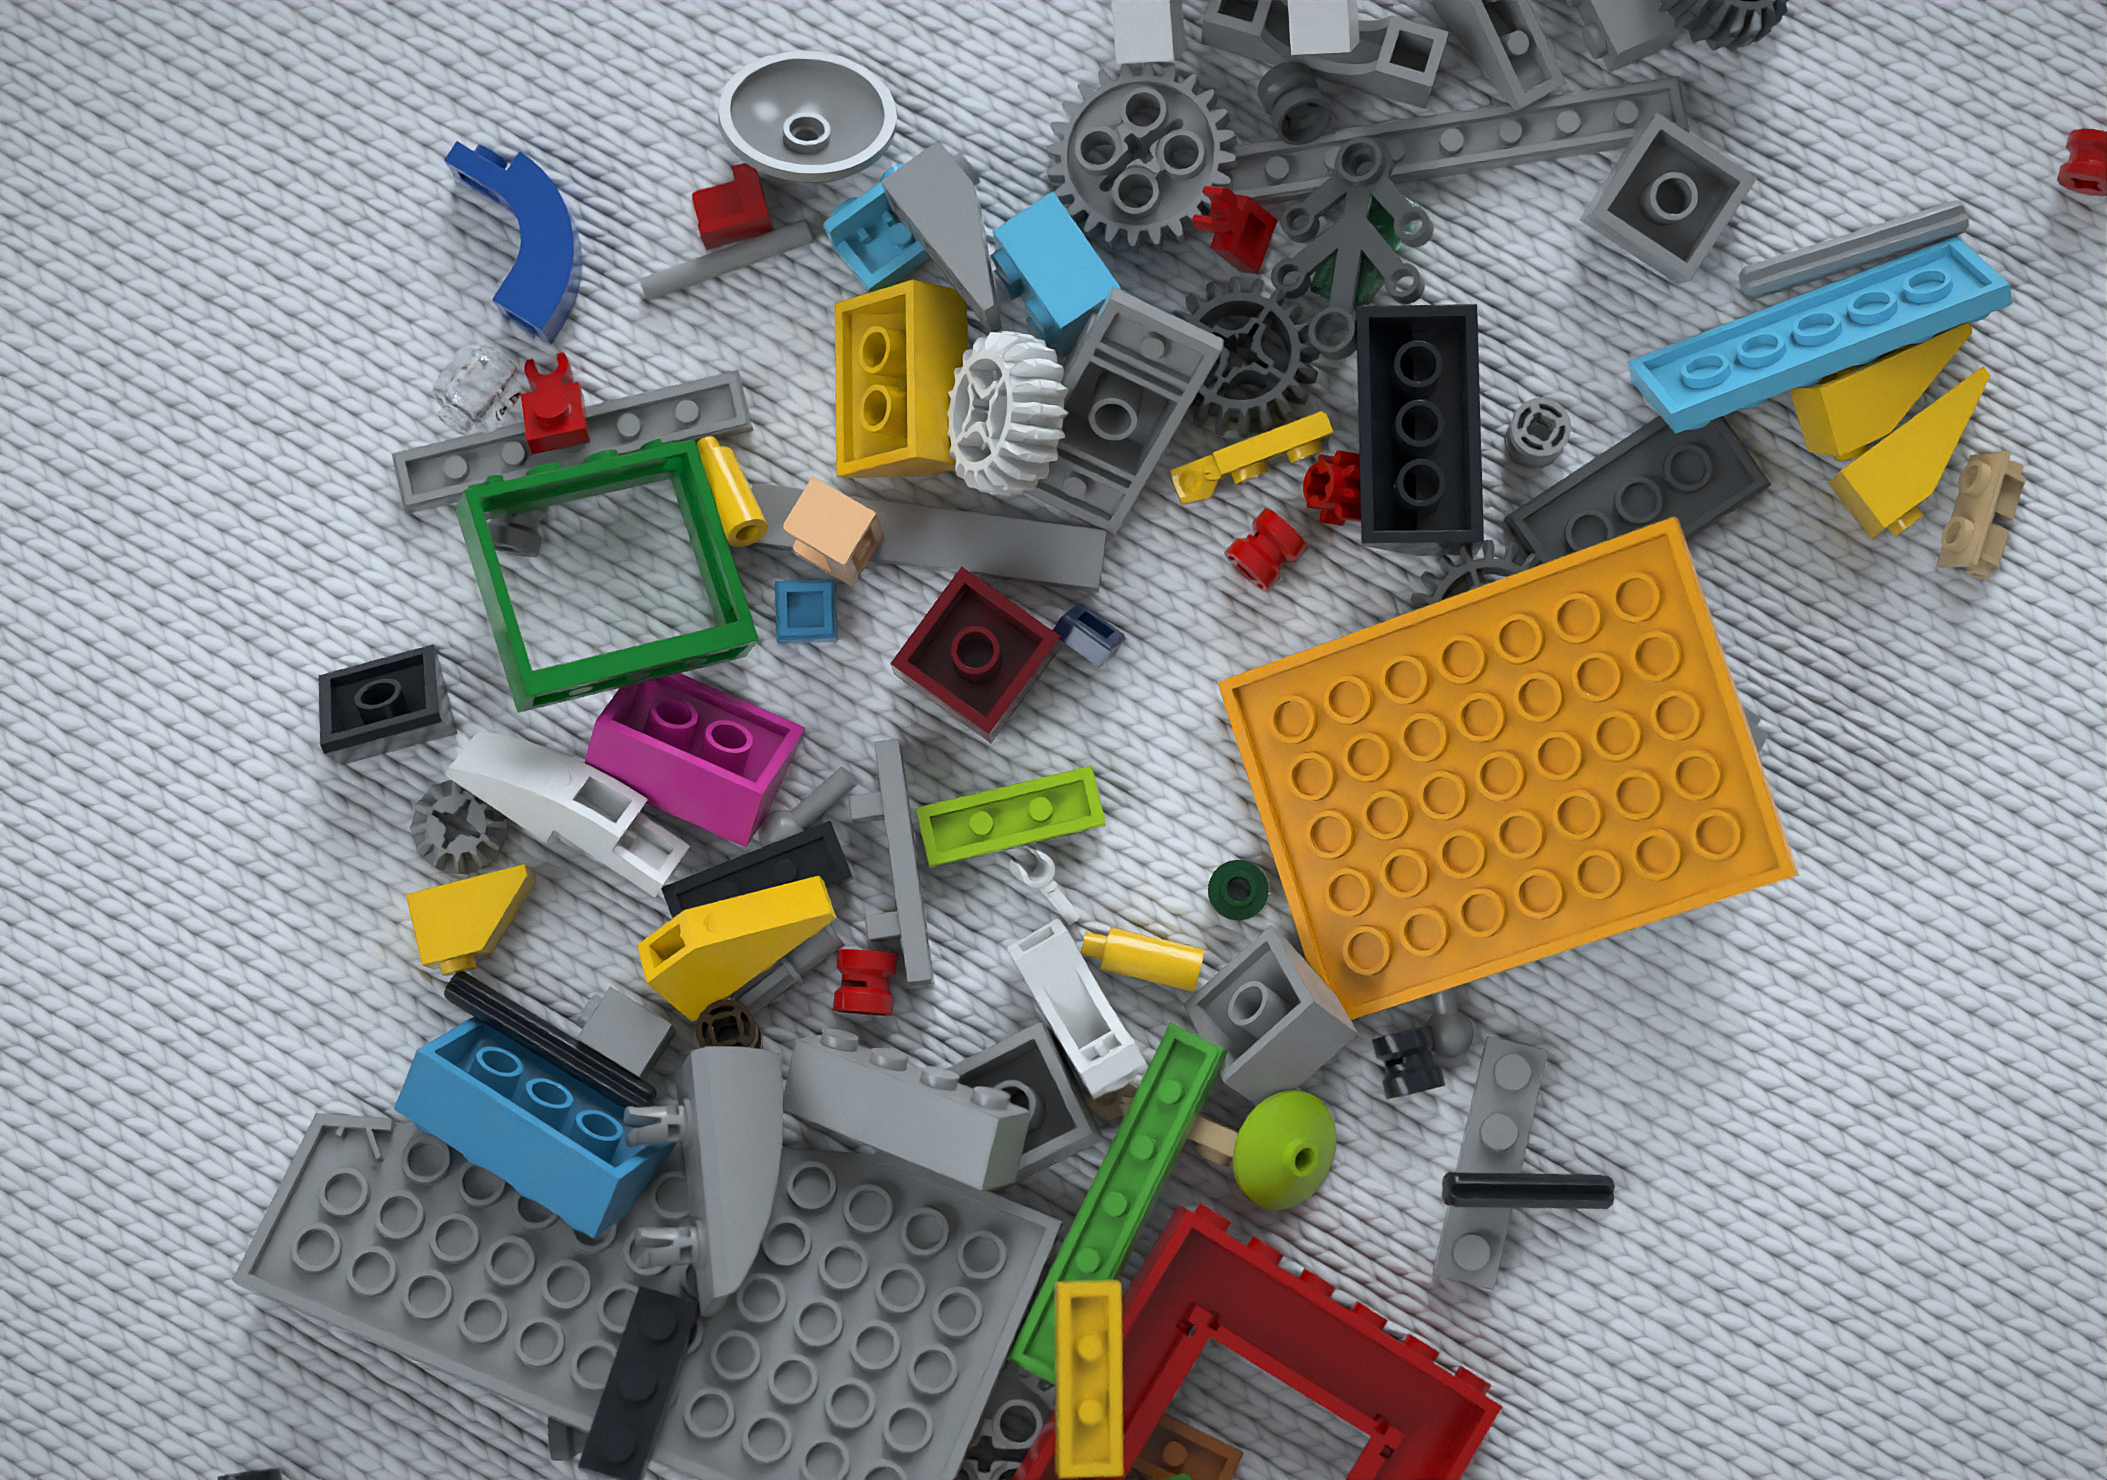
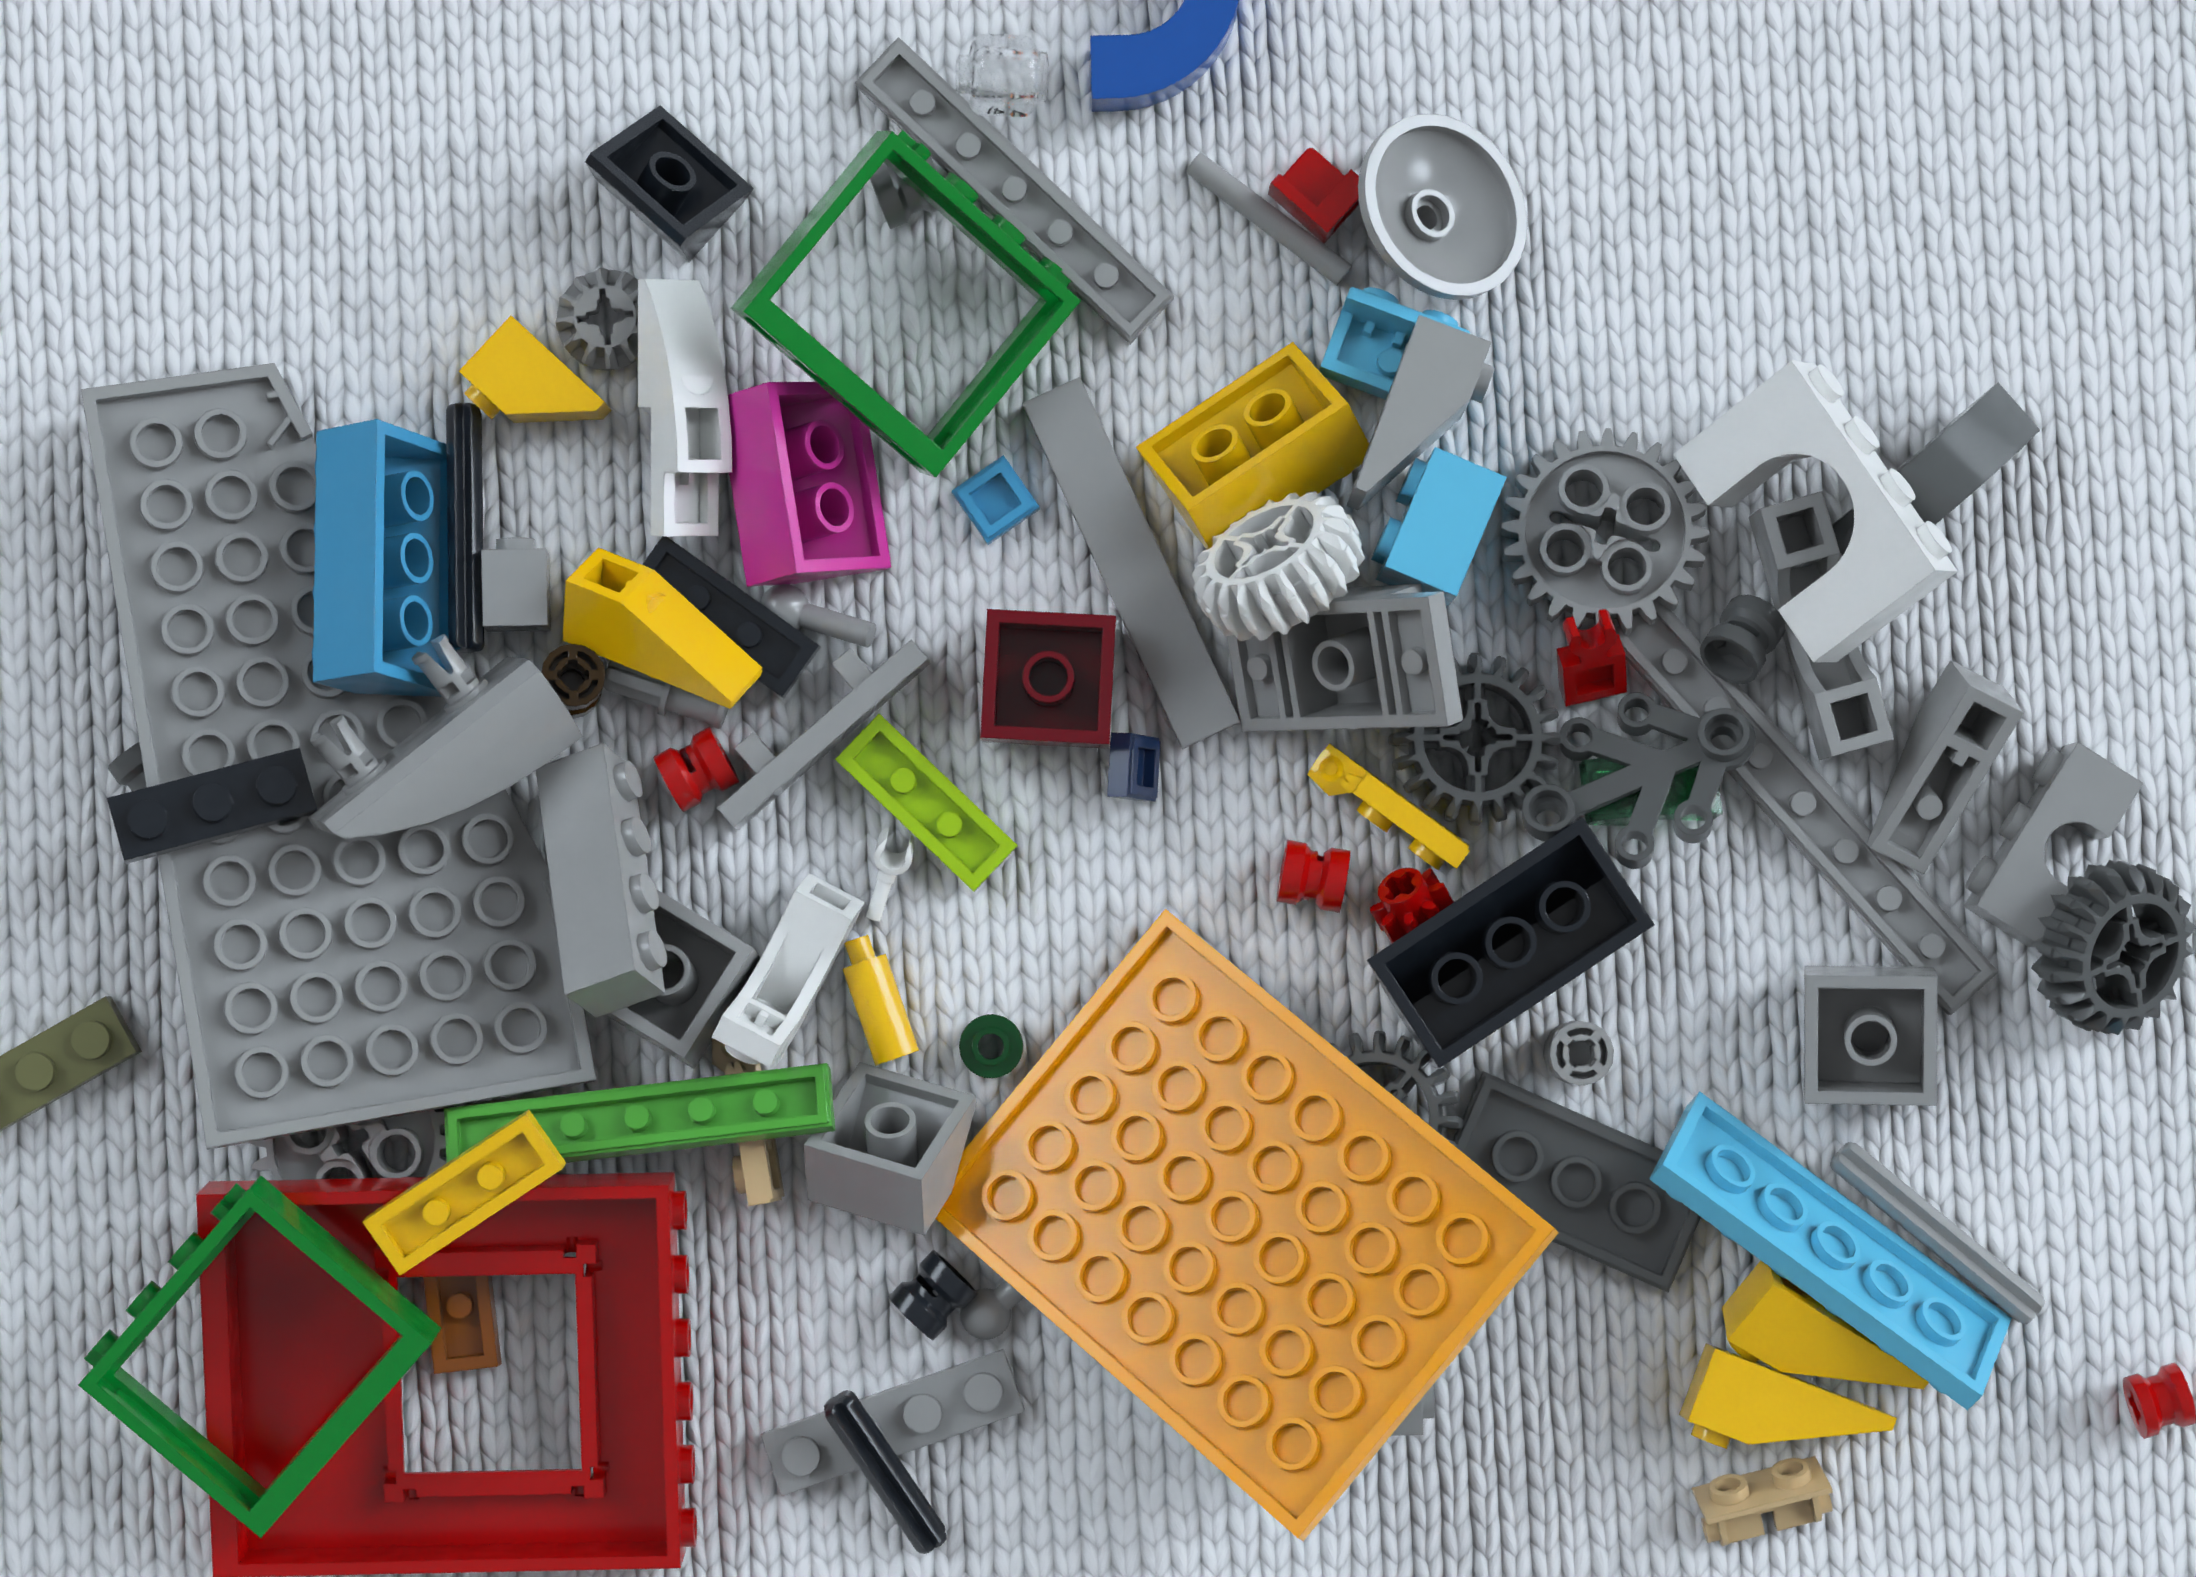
camera: 50 degrees right, 5 degrees up
(555, 409) = (1028, 157): red plate -> none
(733, 497) = (1055, 364): yellow cylinder -> none
(833, 531) = (1072, 480): light nougat panel -> none
(1284, 1150) = (784, 1234): lime dish -> none

